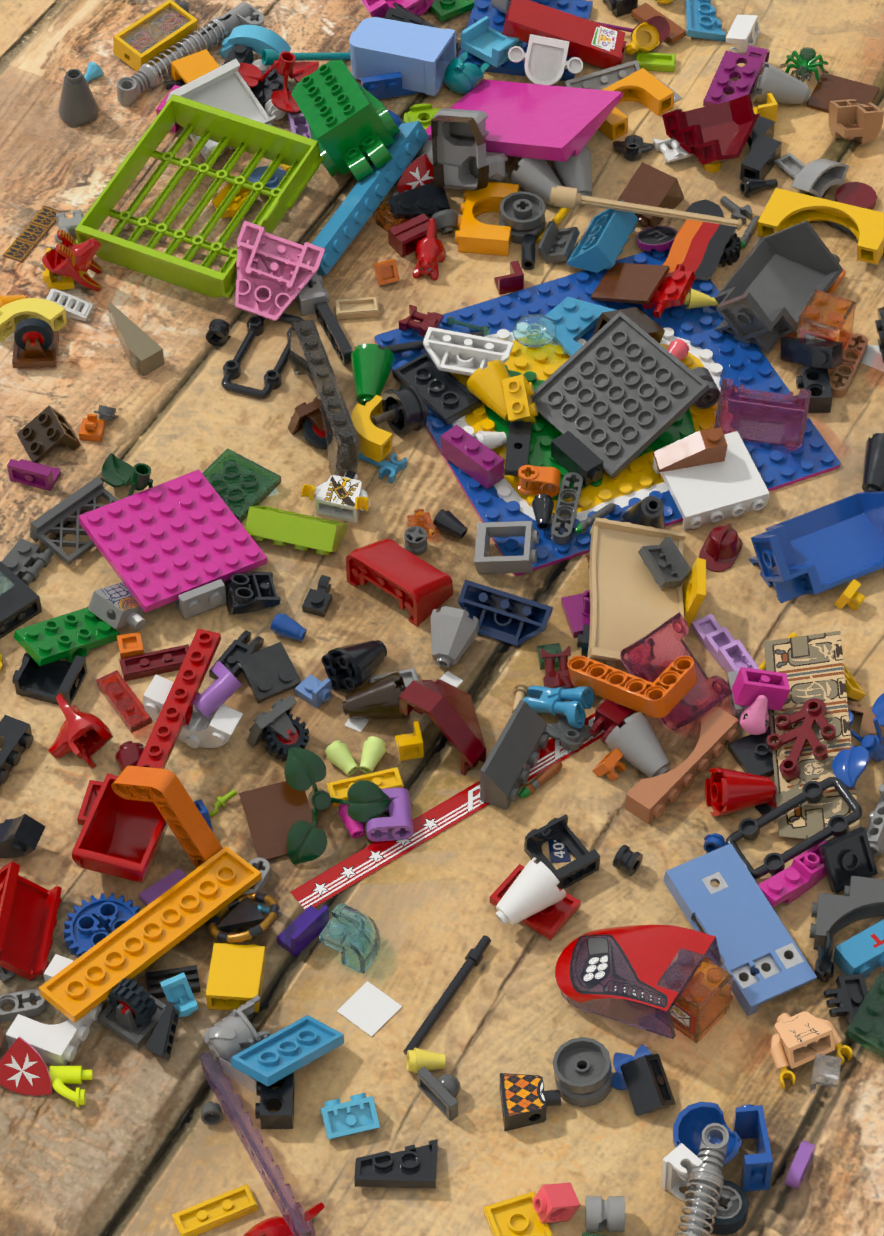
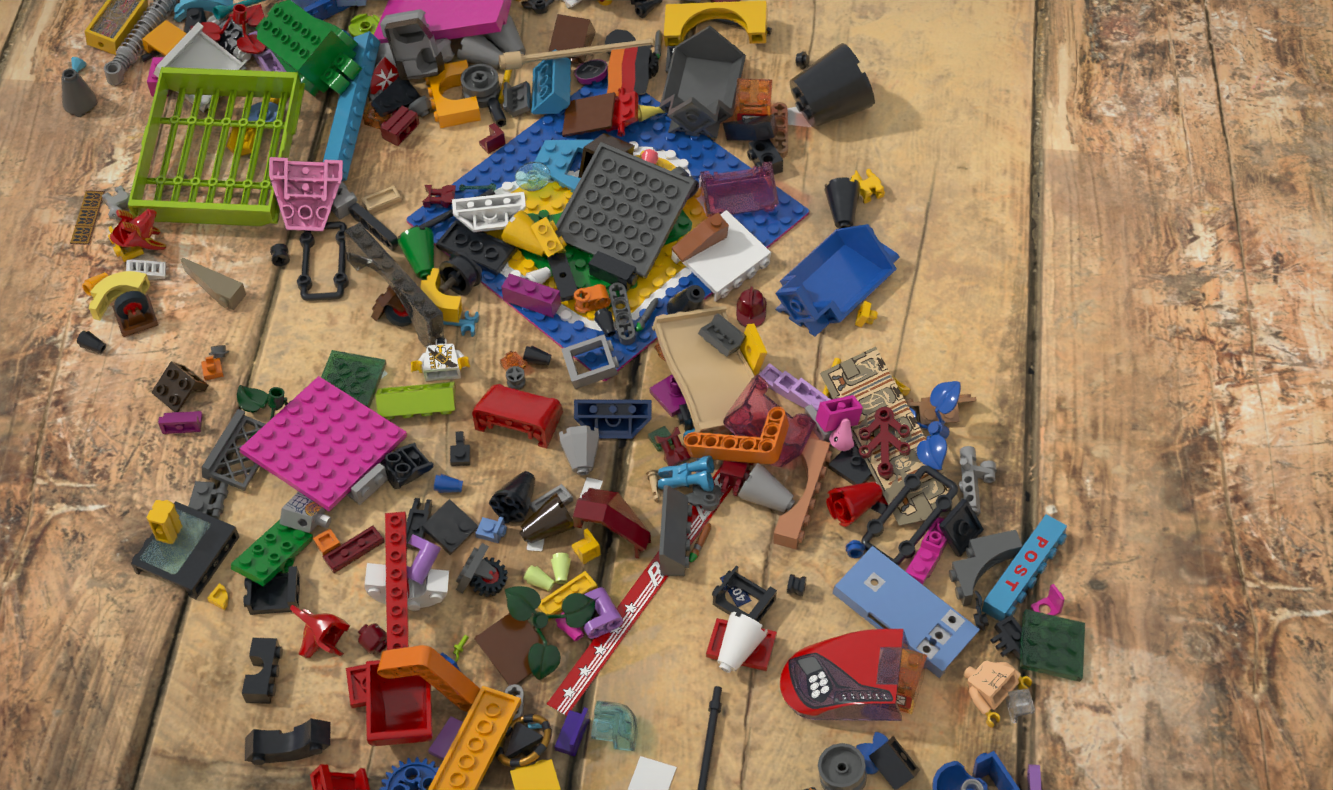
camera: 20 degrees left, 5 degrees up
(124, 701) = (342, 591): clear red plate -> none
(386, 272) = (393, 162): orange tile -> none
(428, 254) = (419, 137): red animal -> none
(608, 764) = (746, 512): orange tile -> none
(738, 212) = (643, 31): dark grey bar -> none

